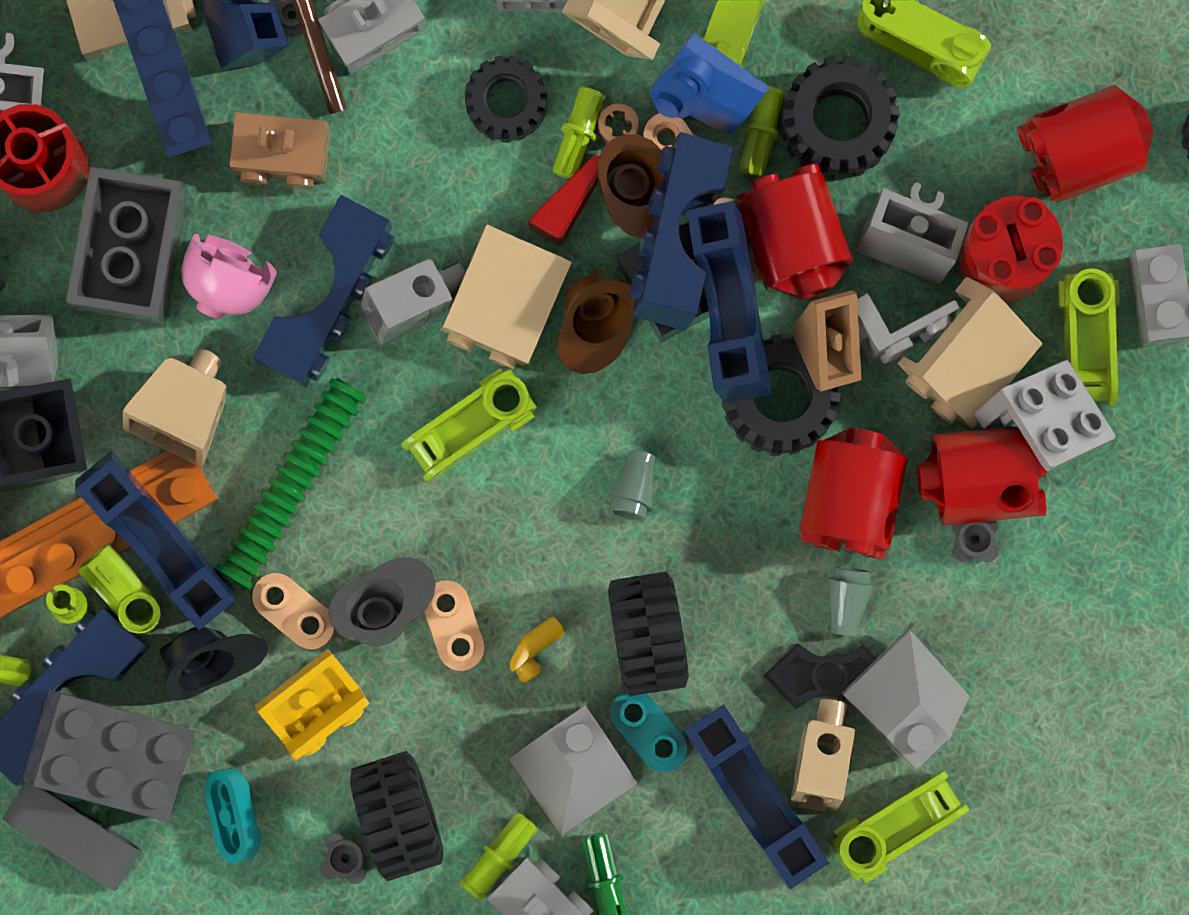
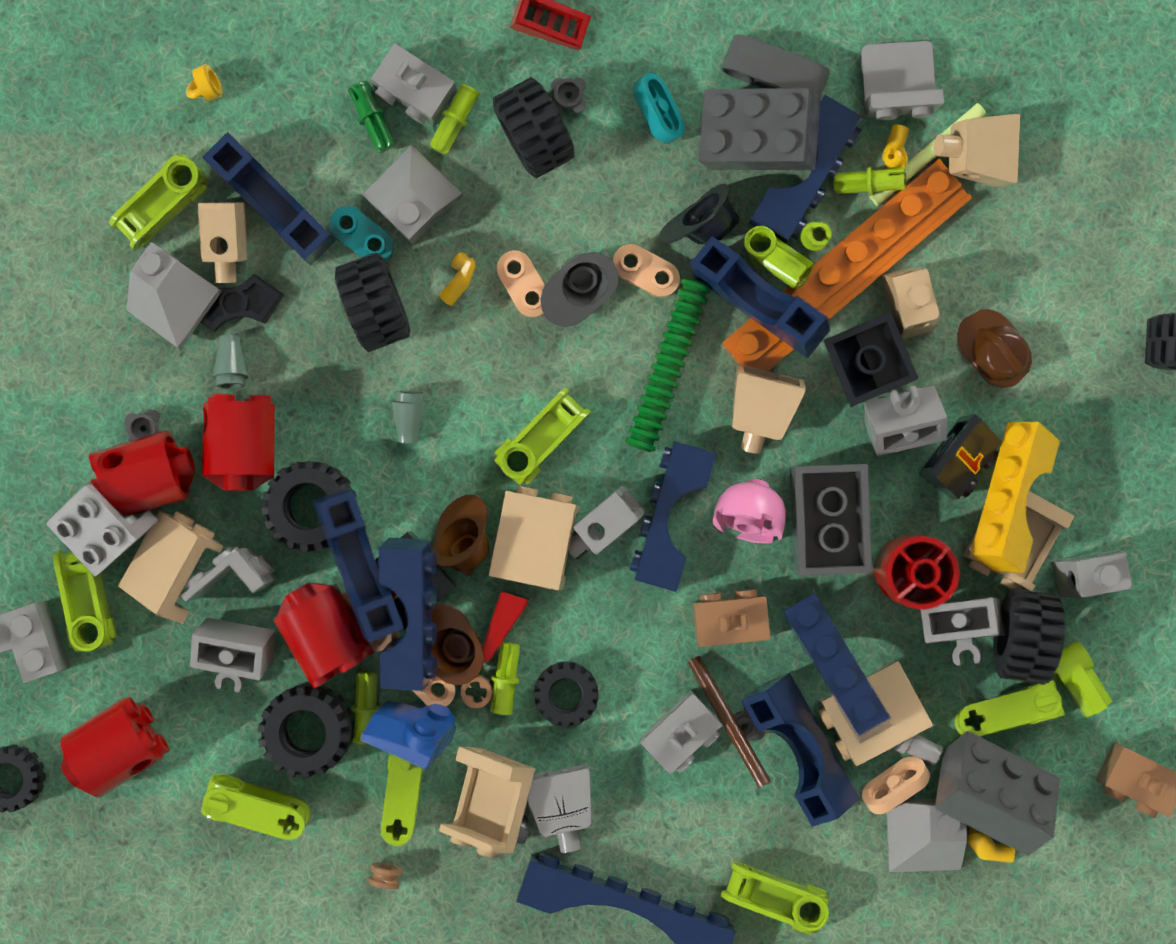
camera: 170 degrees right, 5 degrees up
(313, 705) = (615, 201): yellow bracket -> none
(830, 340) = (275, 550): medium nougat slope -> none
(1012, 247) = (149, 652): red cylinder -> none

